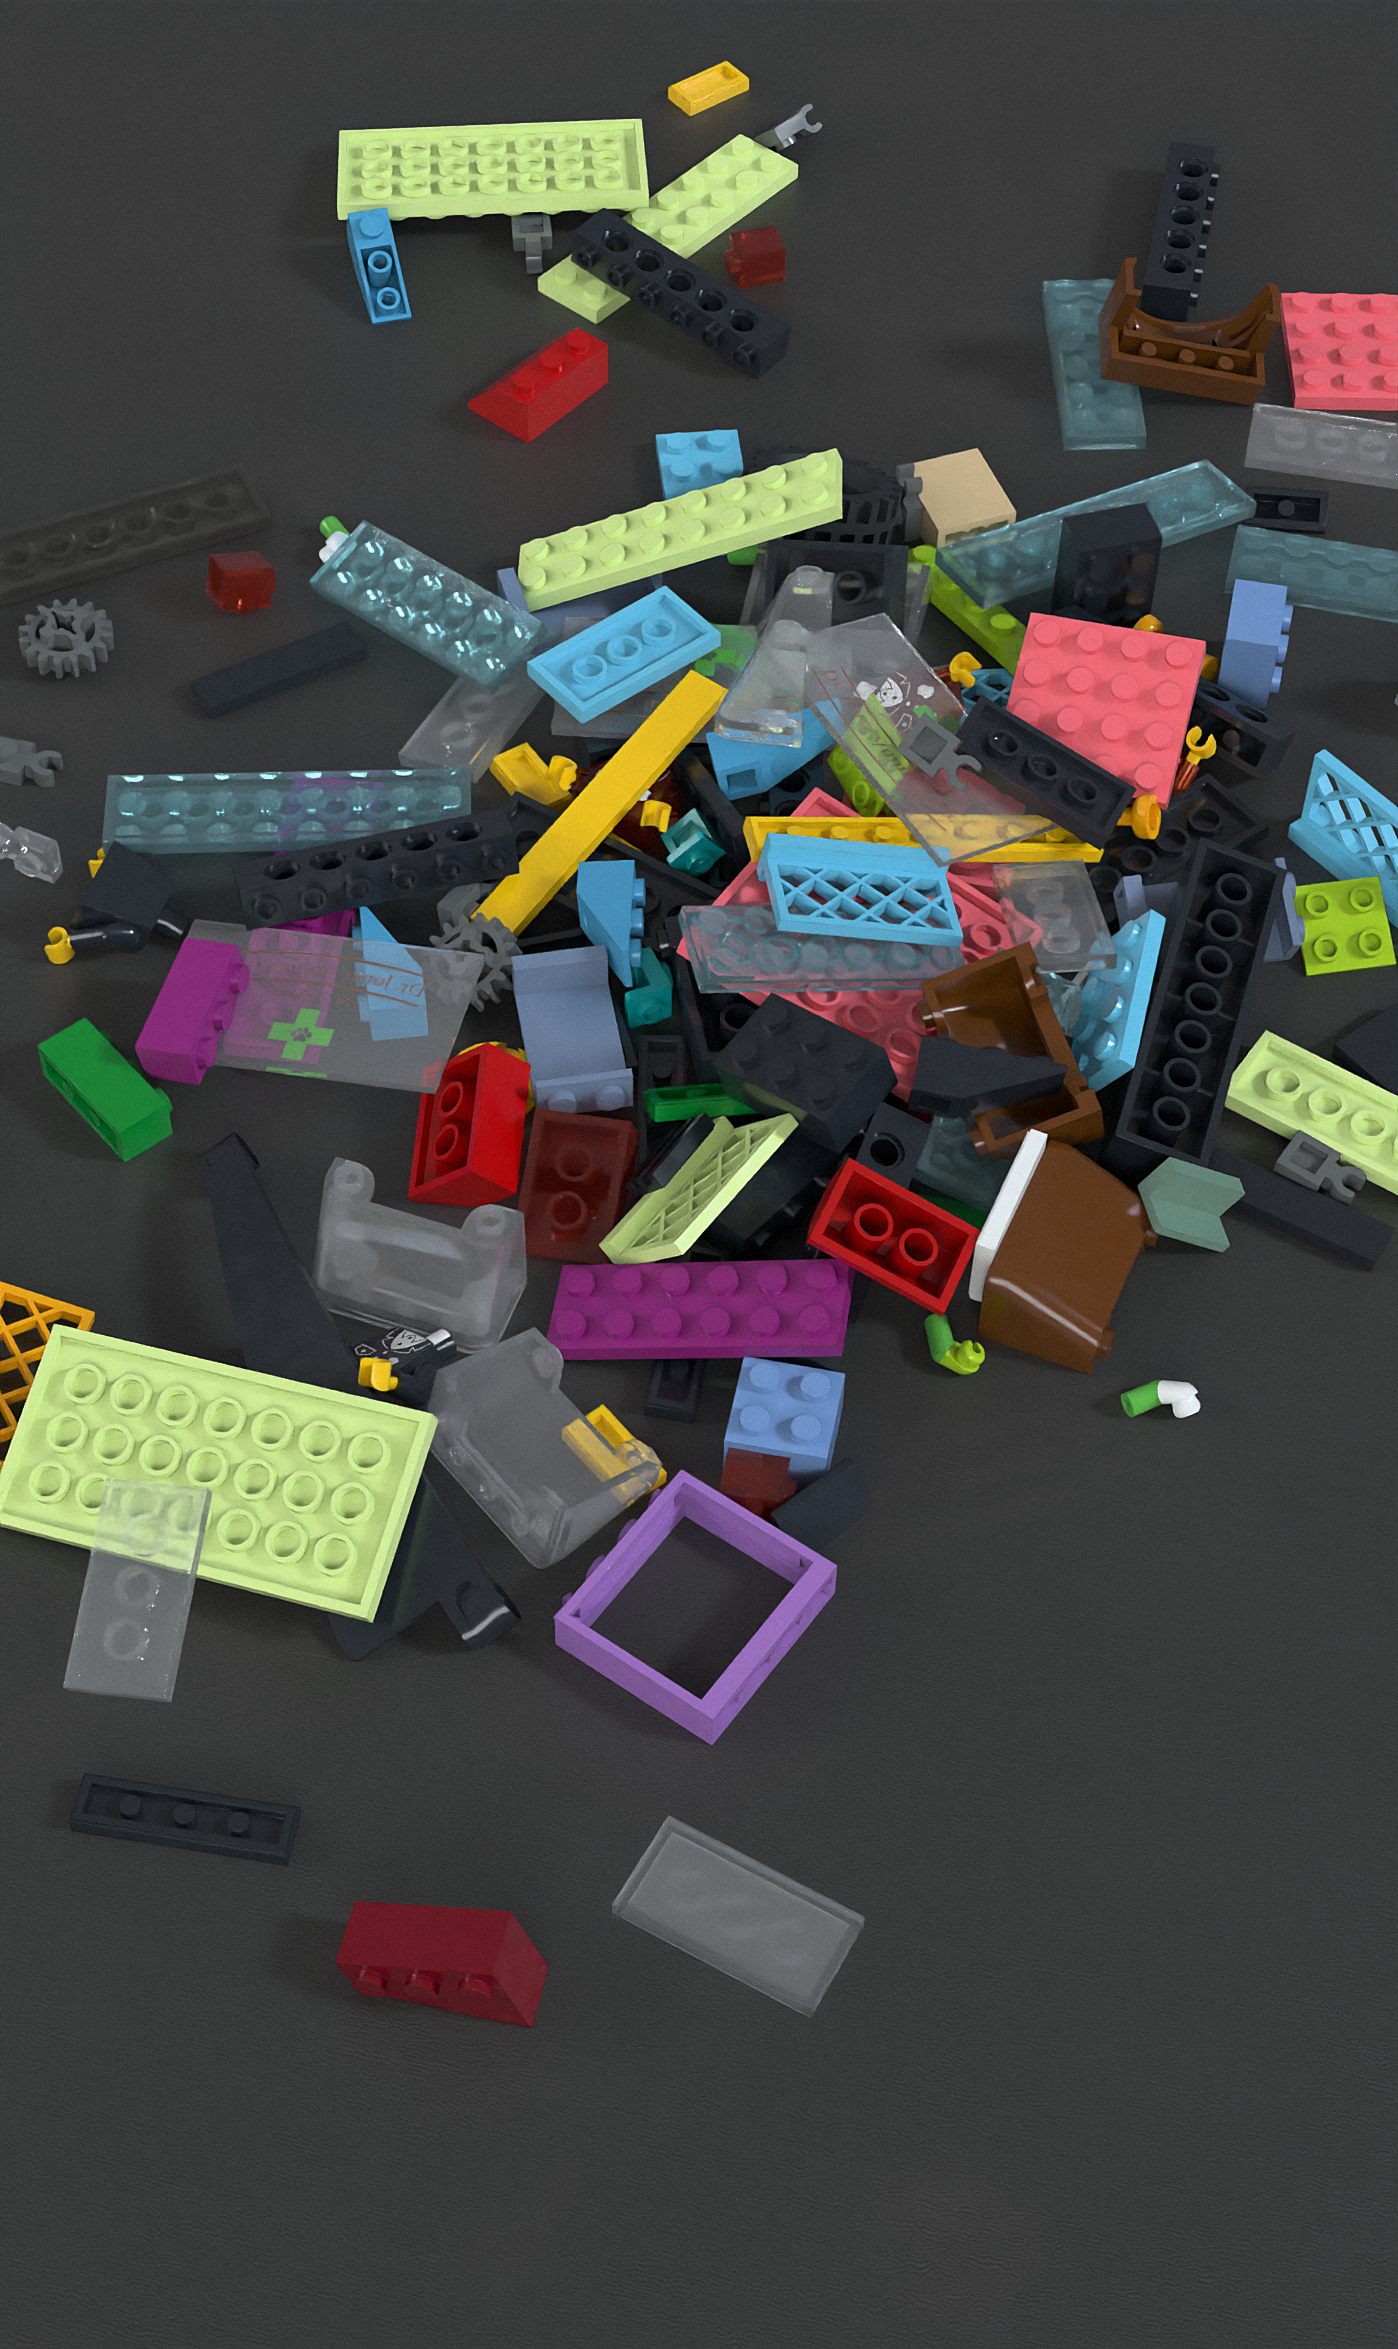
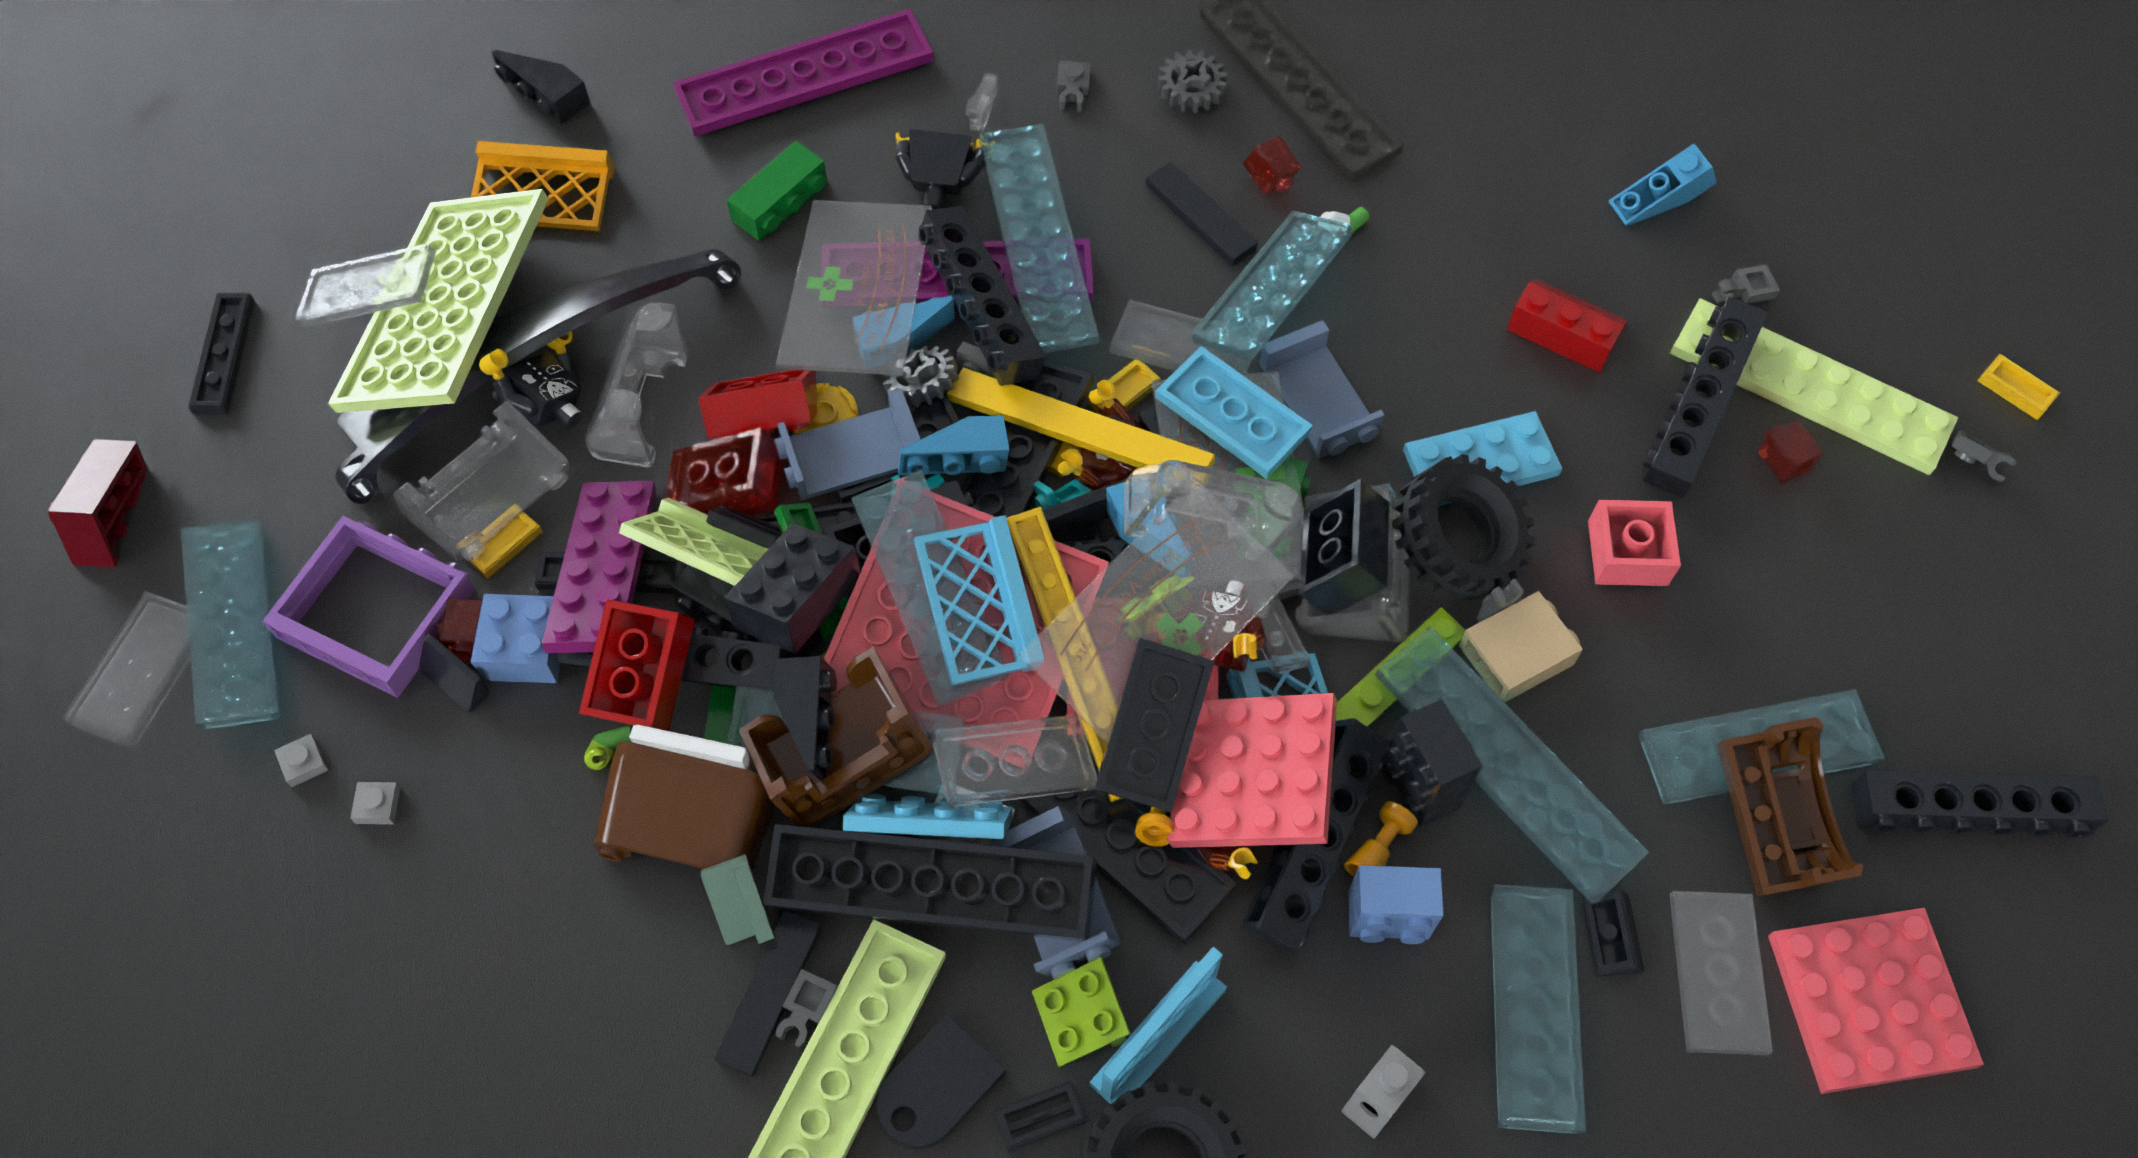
camera: 80 degrees right, 10 degrees up
(192, 1011) = (831, 214): magenta brick -> none
(493, 169) = (1820, 243): yellowish green plate -> none
(682, 530) = (1376, 429): yellowish green plate -> none
(687, 1788) = (226, 632): none -> clear light blue plate
(851, 388) = (1634, 542): none -> coral brick
(918, 1702) = (301, 760): none -> light grey plate
(934, 749) = (1124, 628): dark grey plate -> none
(995, 1613) = (375, 803): none -> light grey plate
(1161, 1392) = (573, 904): arm -> none

